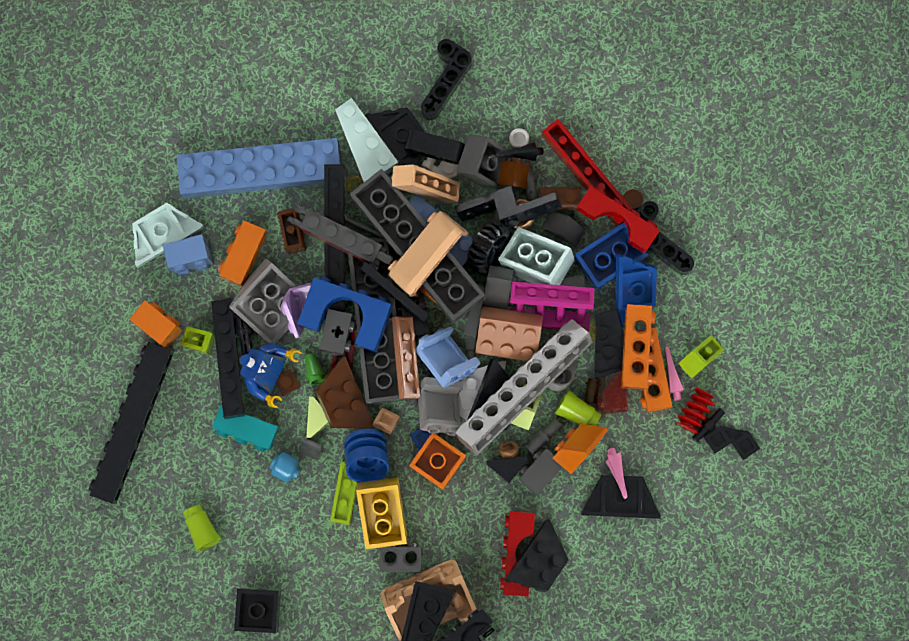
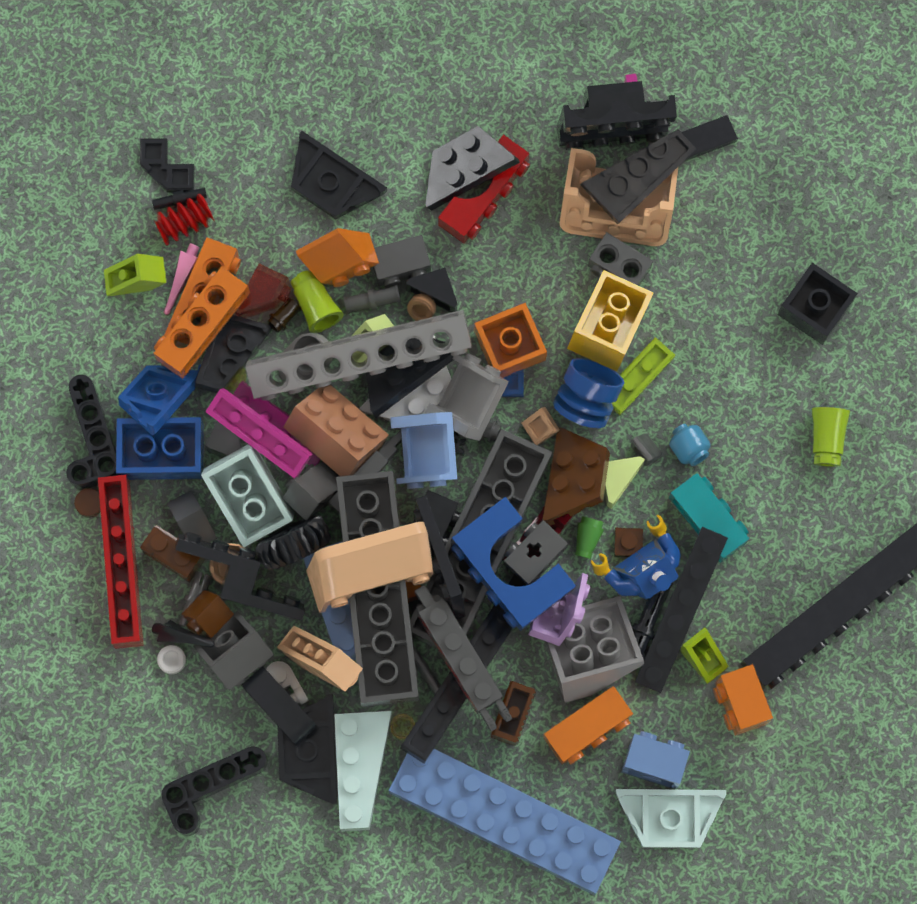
camera: 155 degrees left, 5 degrees down
(406, 357) = (472, 474): nougat tile -> none
(597, 204) = (110, 444): red arch -> none
(615, 464) = (312, 217): bright pink piece -> none

